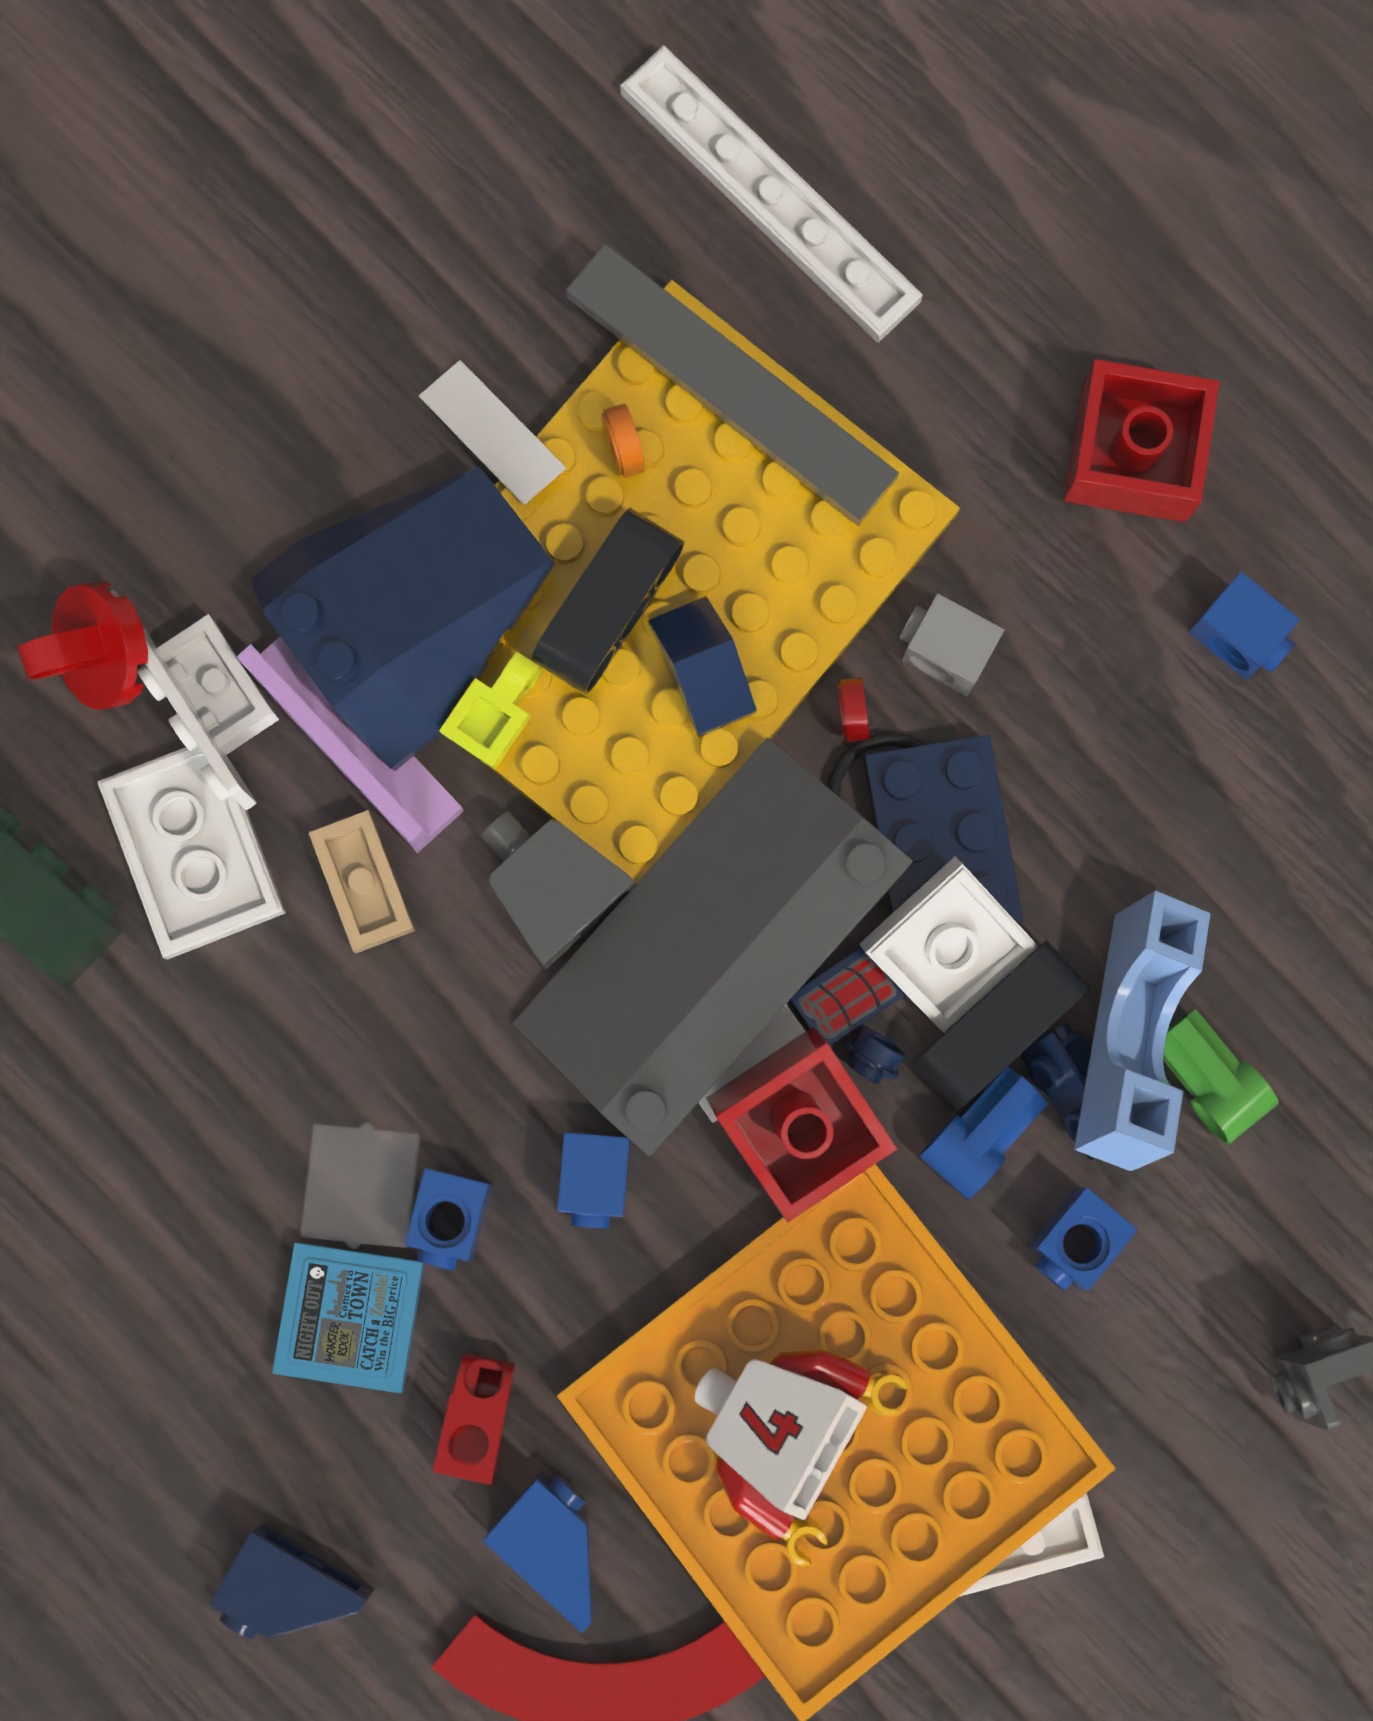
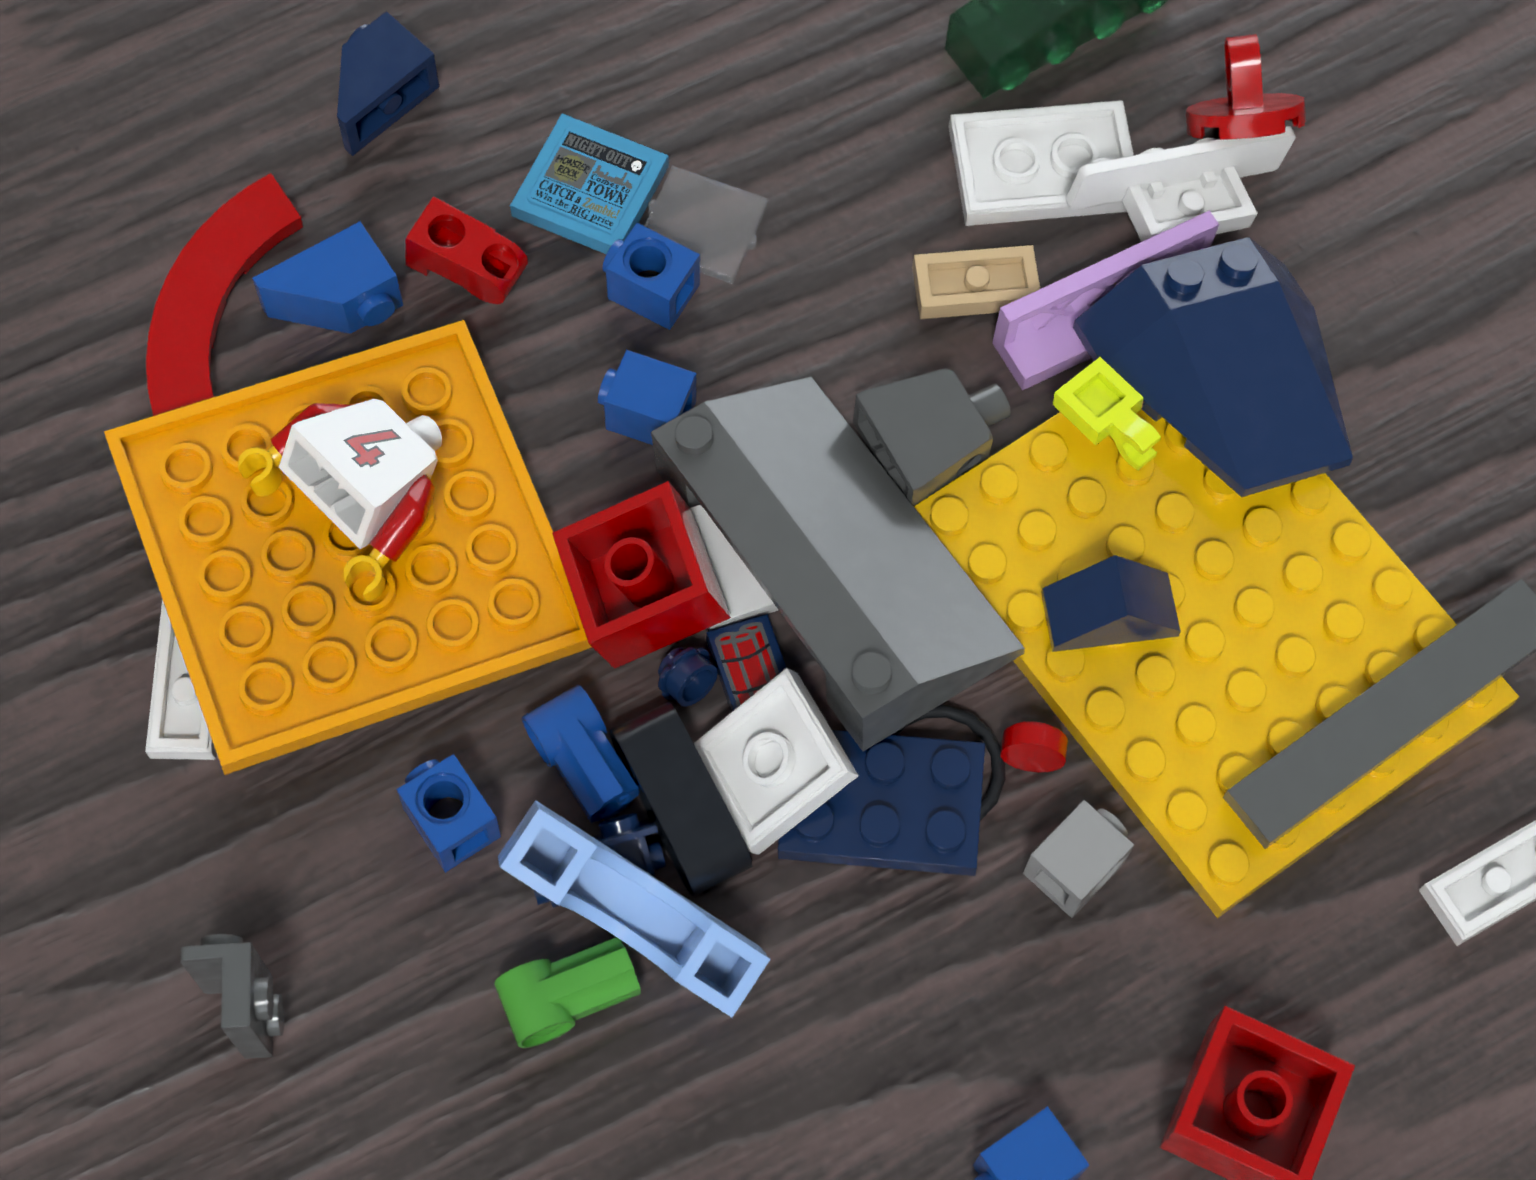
camera: 105 degrees right, 15 degrees down
(492, 432) = (1387, 493): white sticker -> none
(607, 601) = (1194, 535): black beam -> none
(623, 440) = (1355, 590): orange tile -> none

